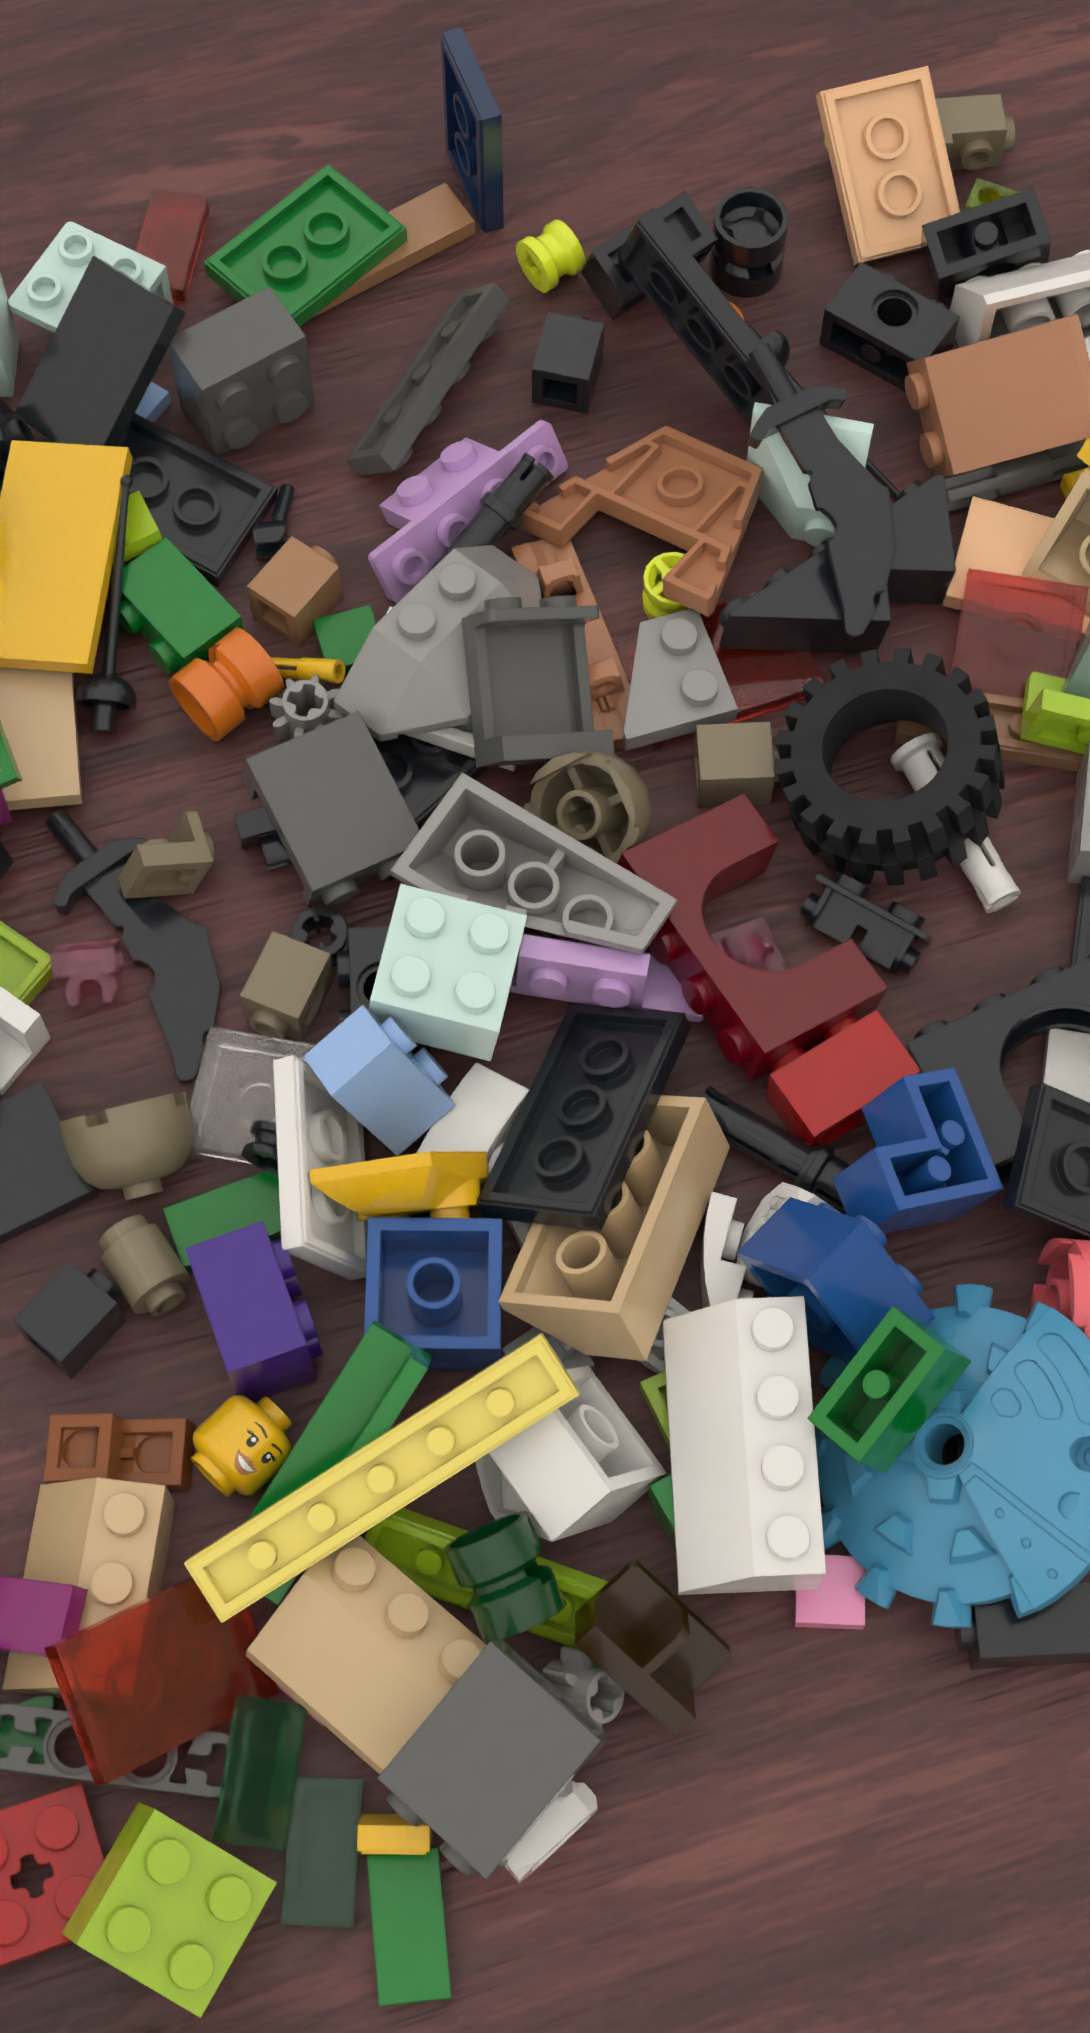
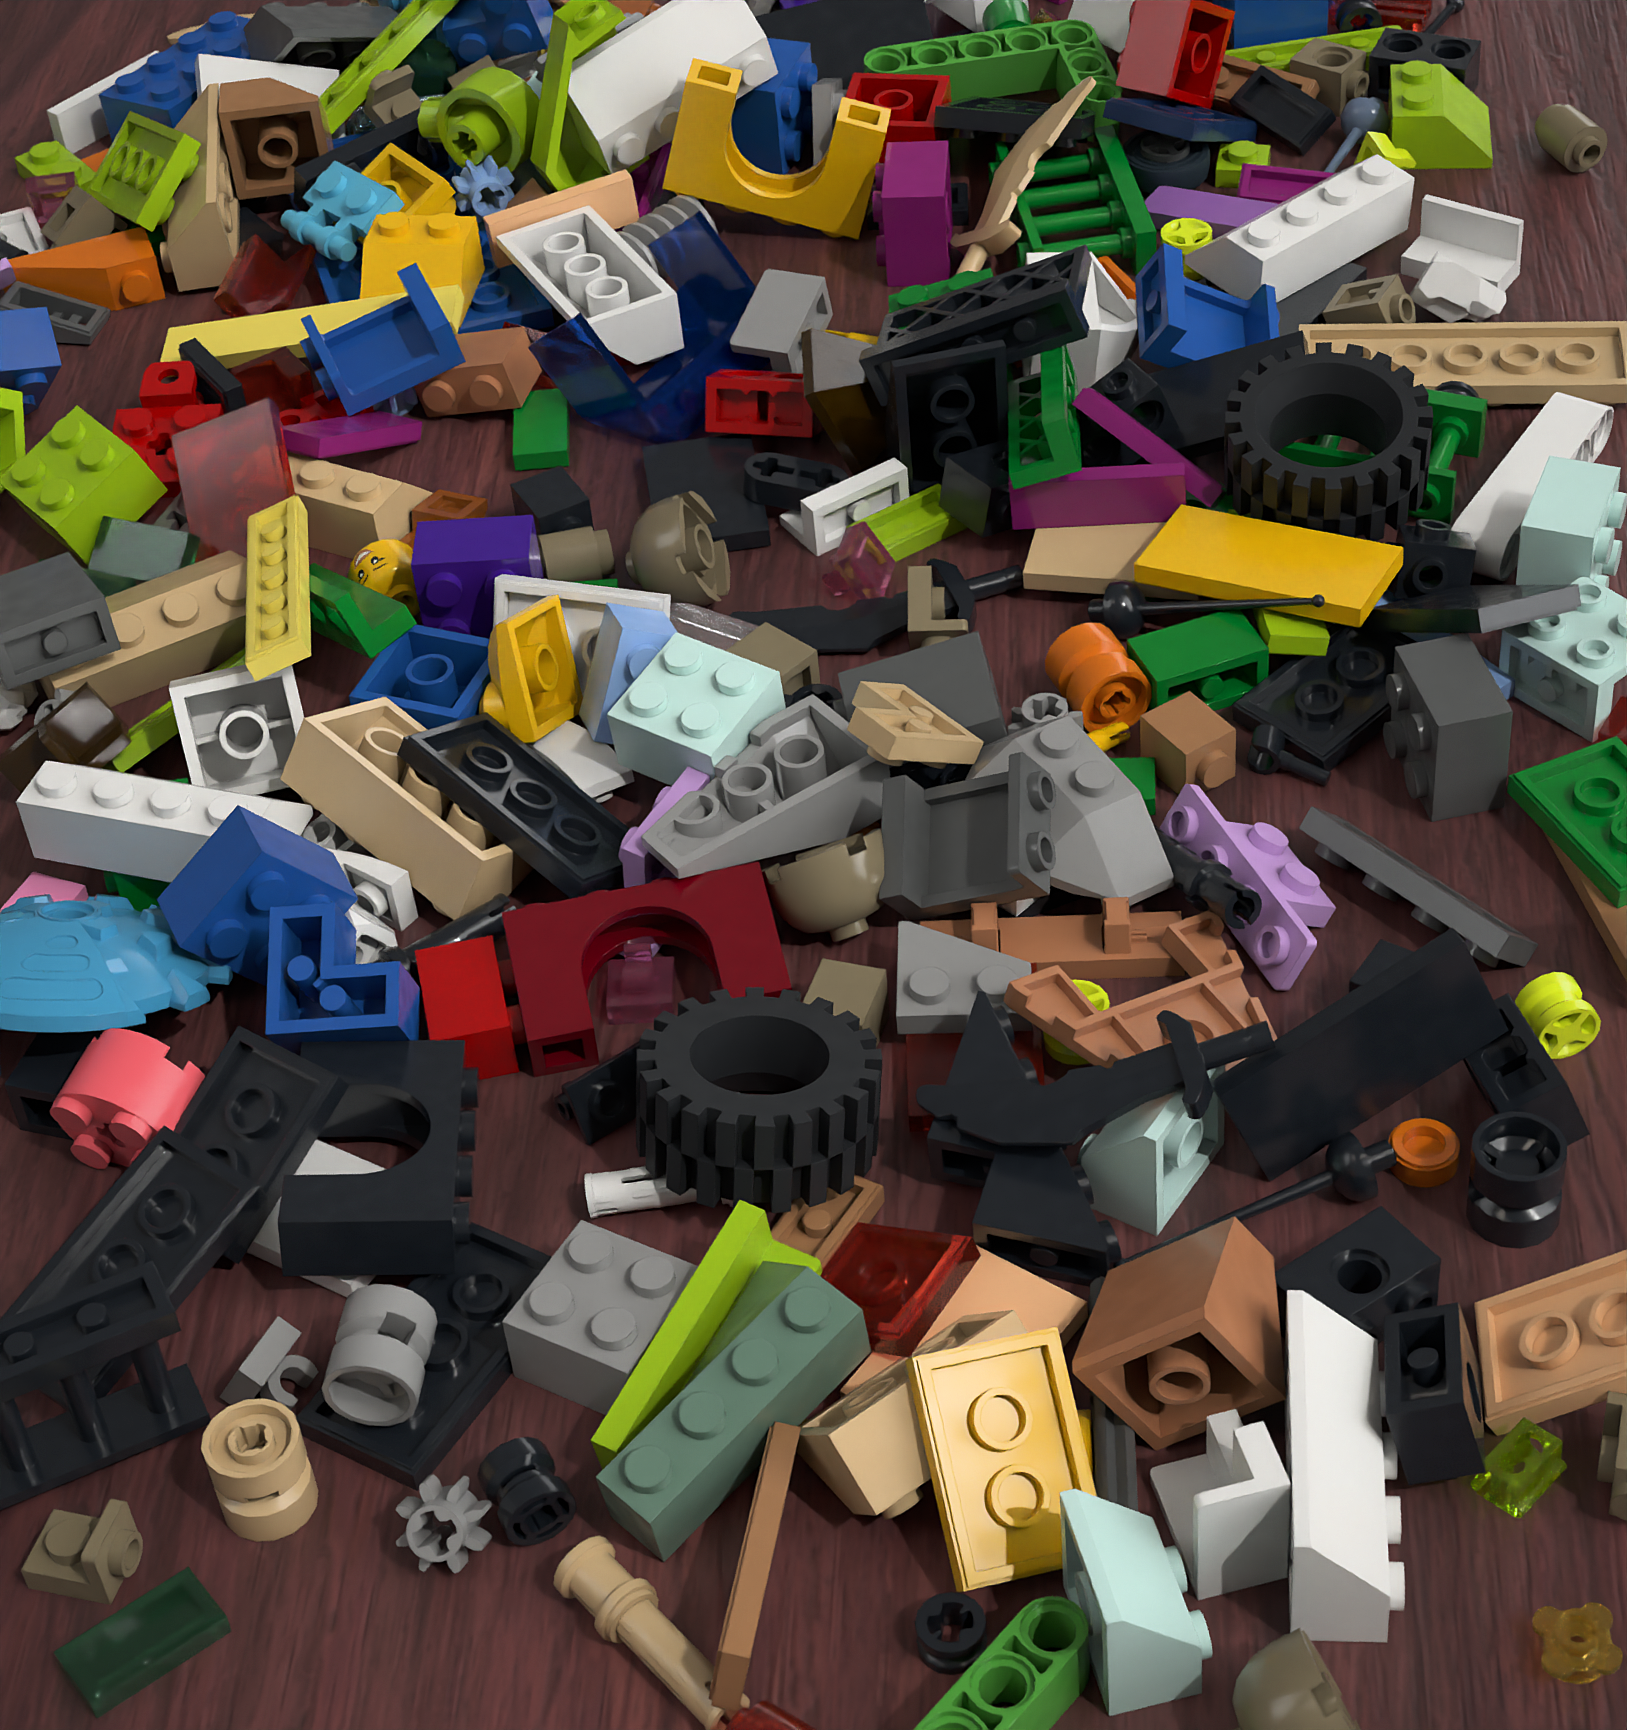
camera: 115 degrees right, 25 degrees down
(419, 750) = (908, 728): none -> tan plate
(504, 1575) = (151, 660): dark green wheel -> none
(889, 1390) = (124, 864): green brick -> none

